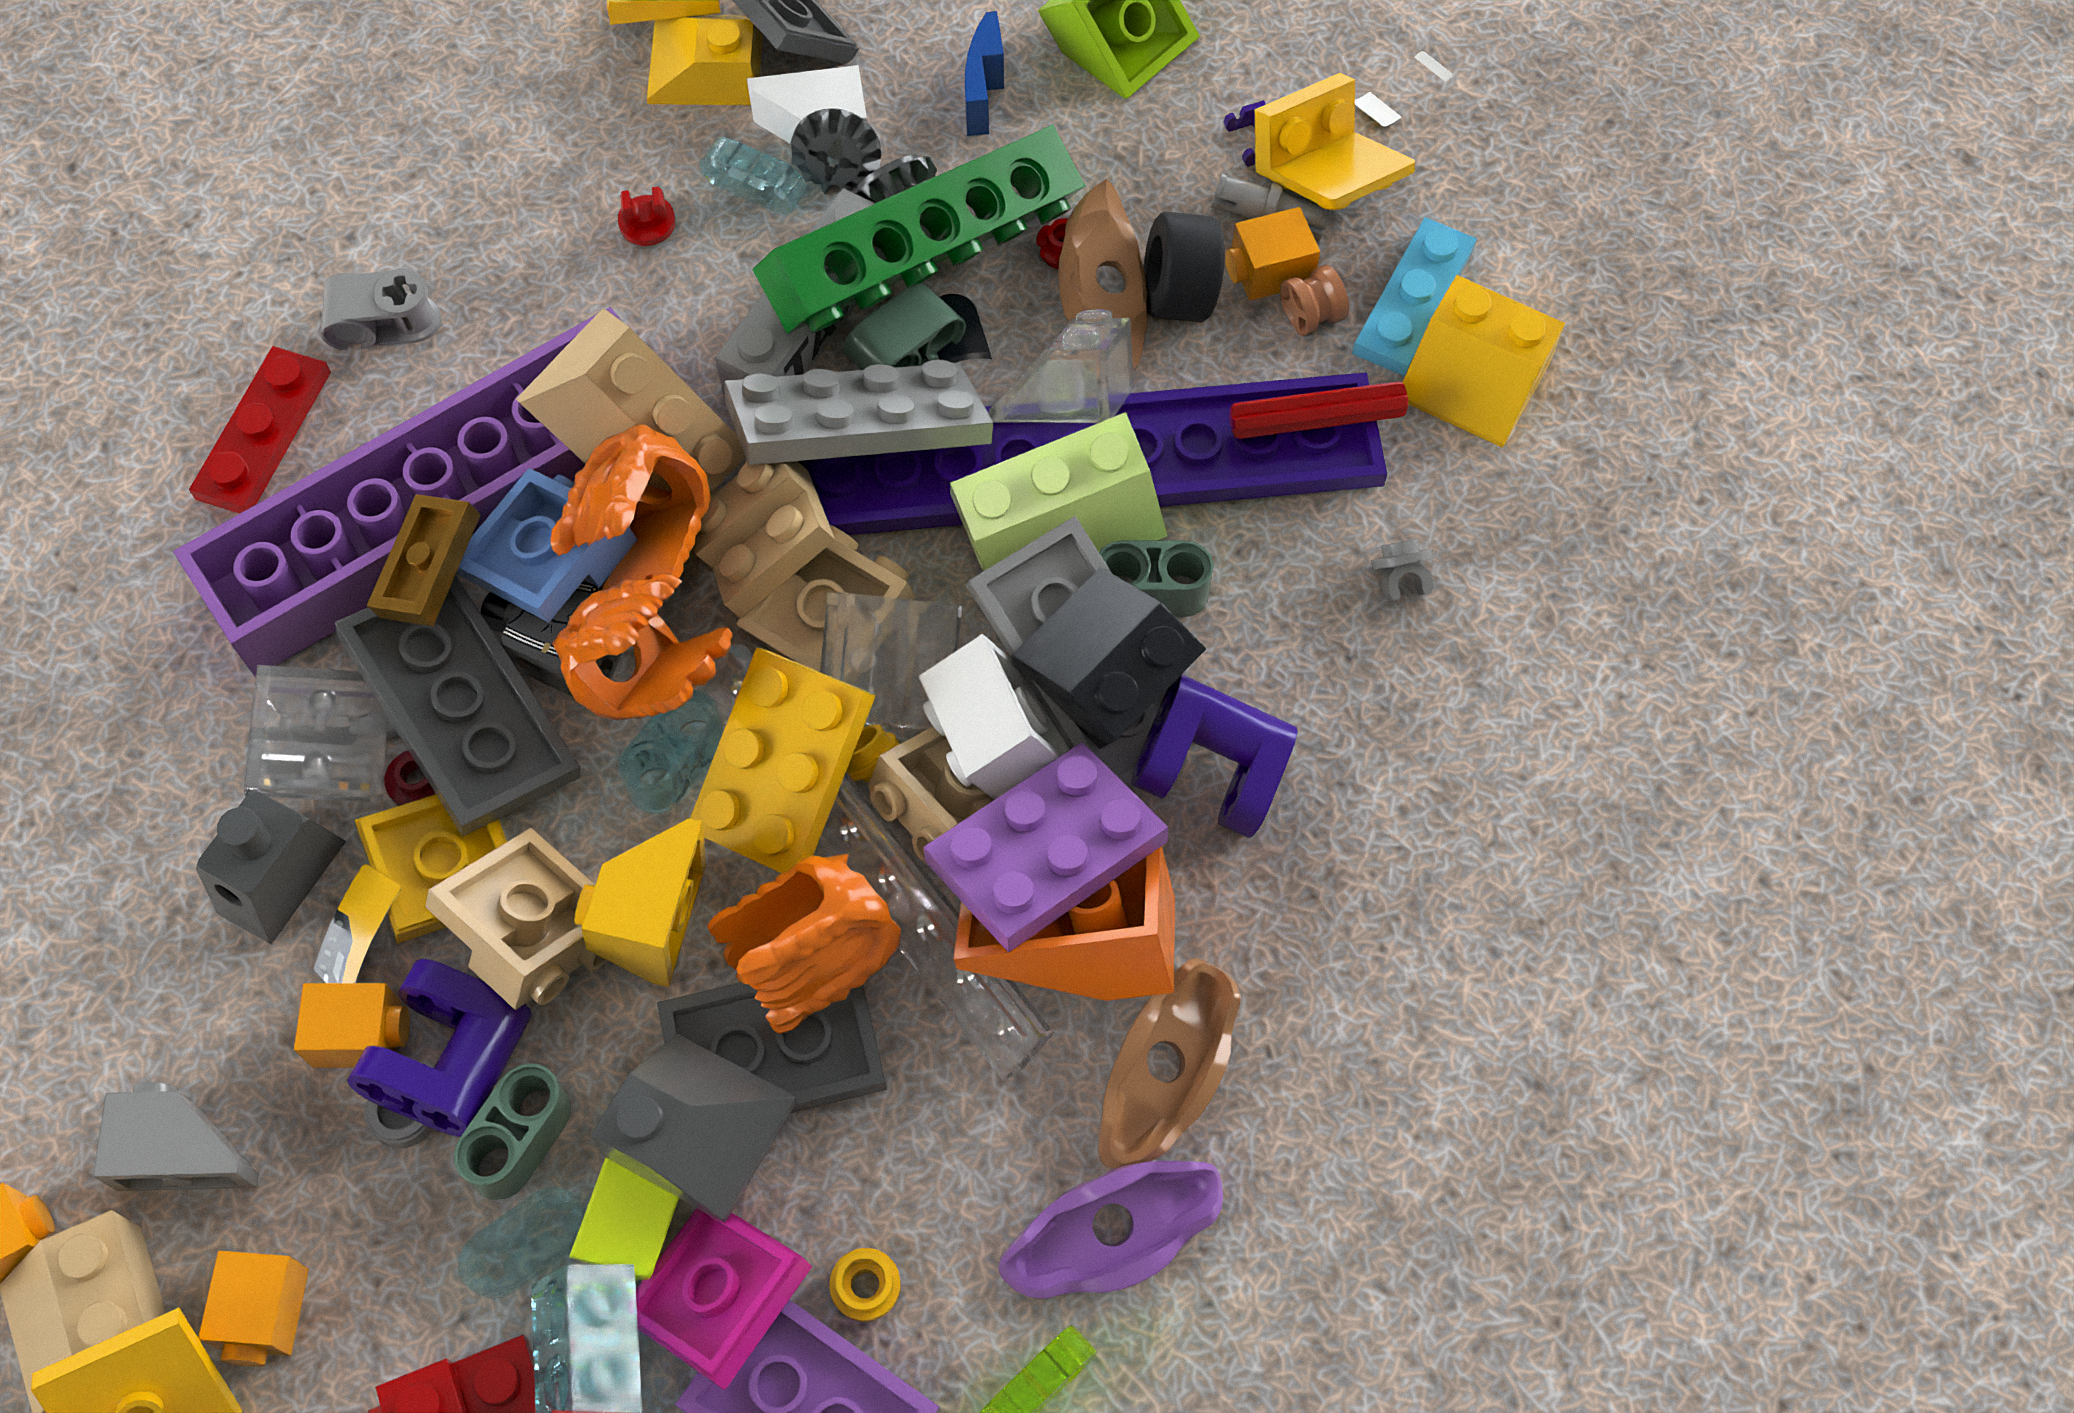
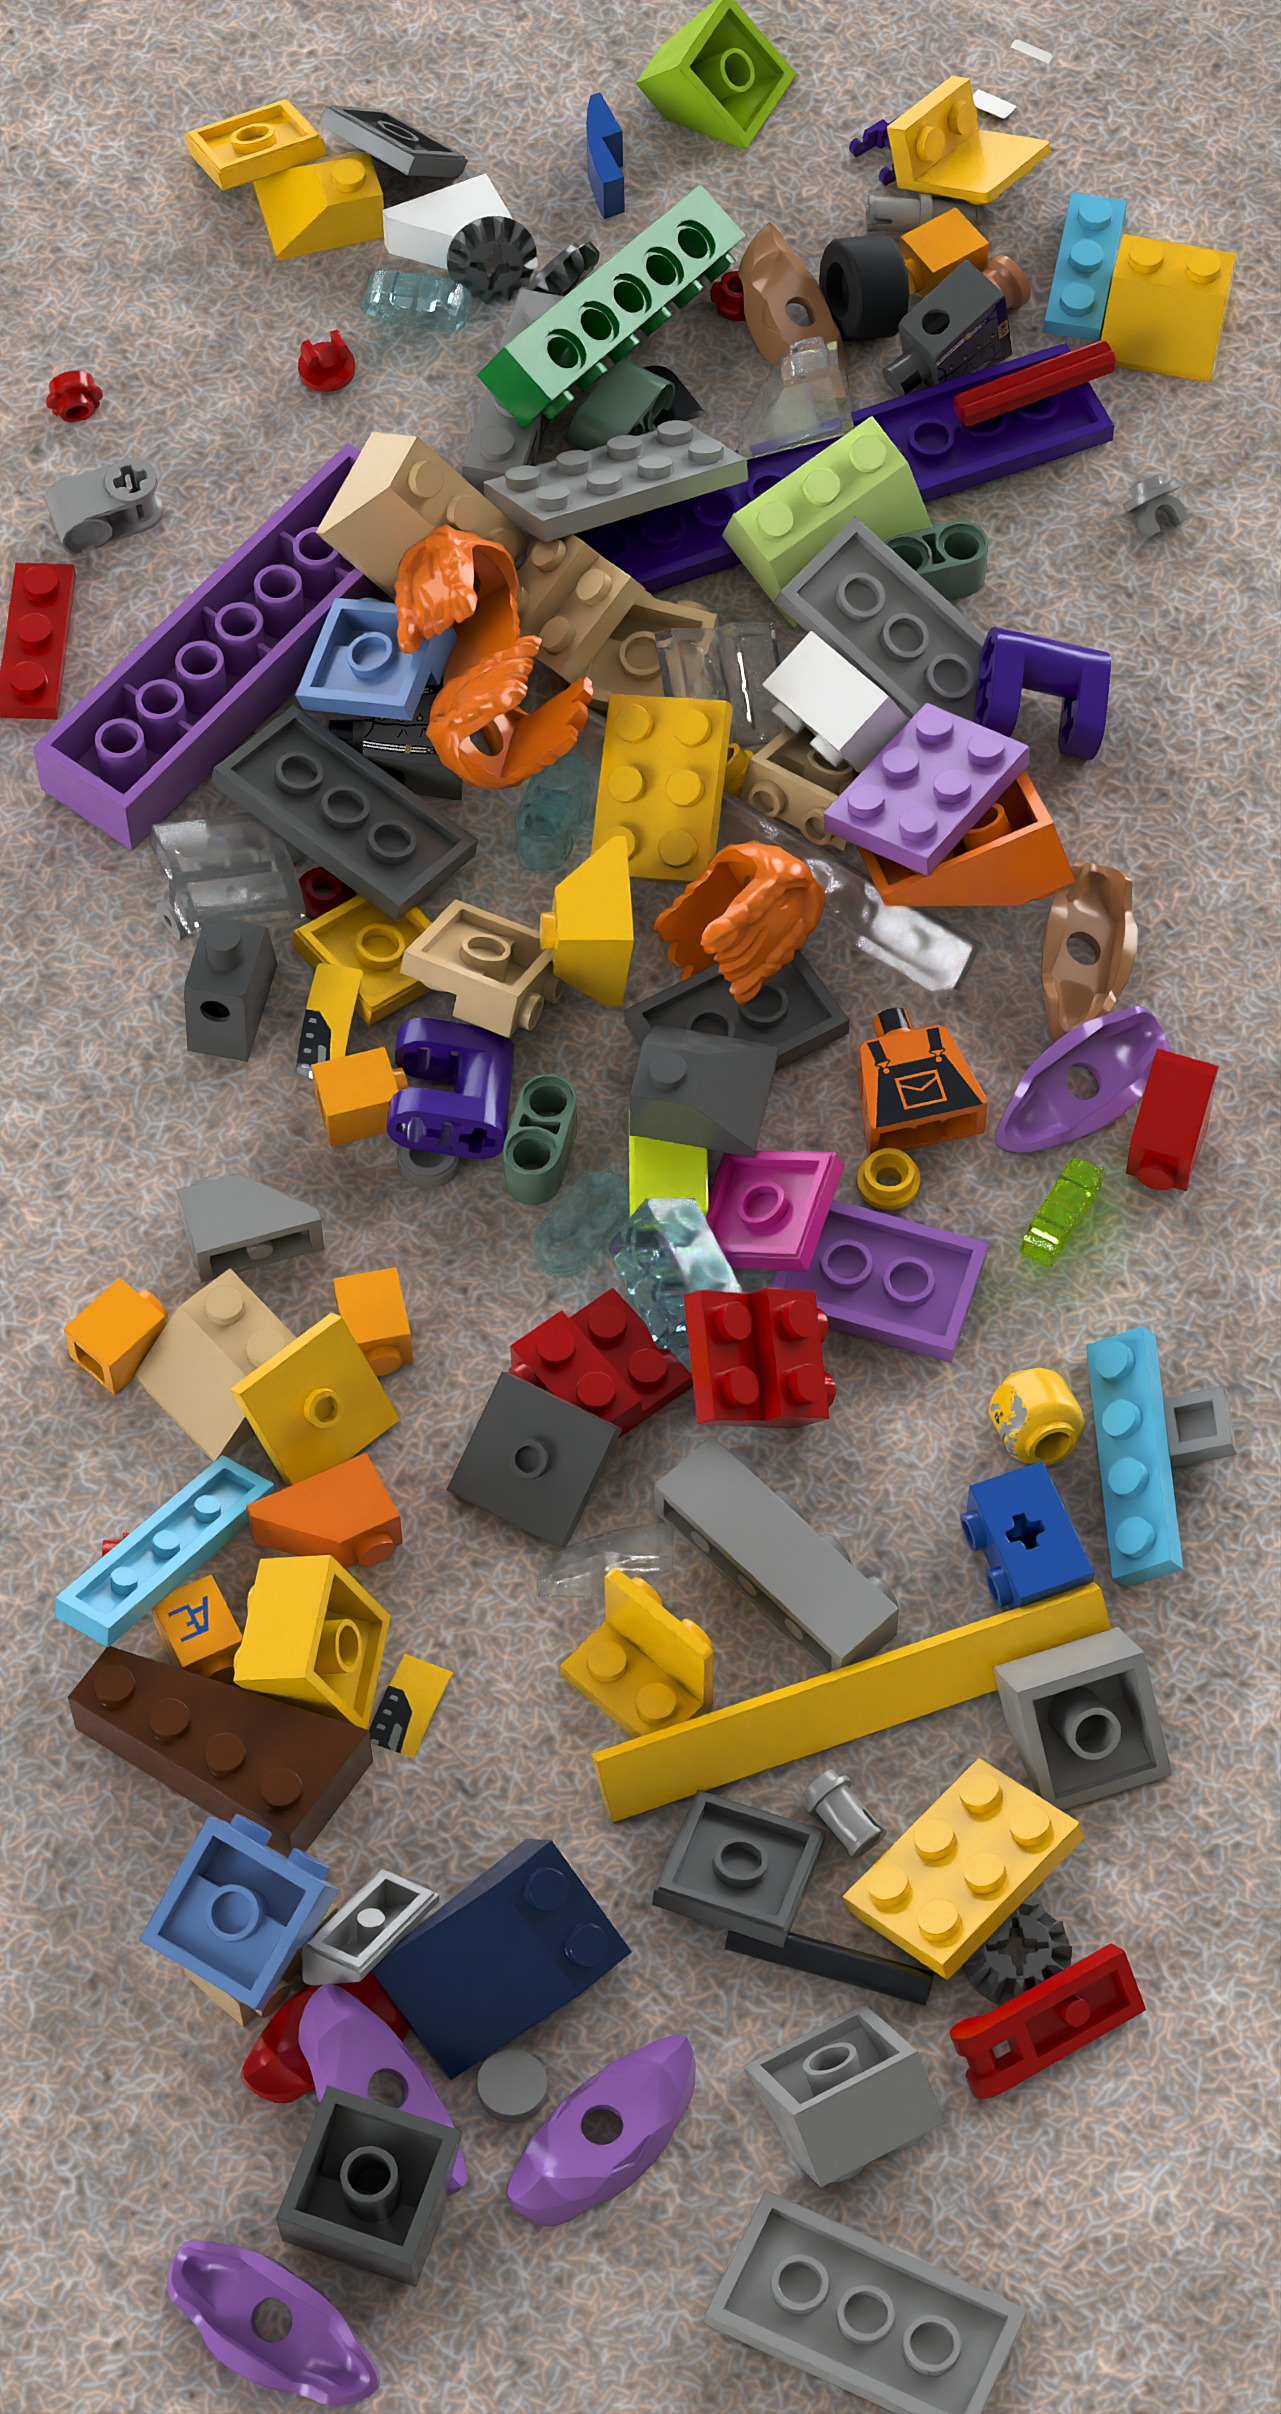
camera: 15 degrees left, 5 degrees down
(399, 191) = (74, 395): none -> red plate
(424, 560) = (277, 693): pearl gold plate -> none
(925, 1181) = (916, 1086): none -> torso
(1107, 655) = (924, 626): black slope -> none
(1183, 1322) = (1171, 1121): none -> red slope
(1252, 336) = (951, 332): none -> dark grey torso

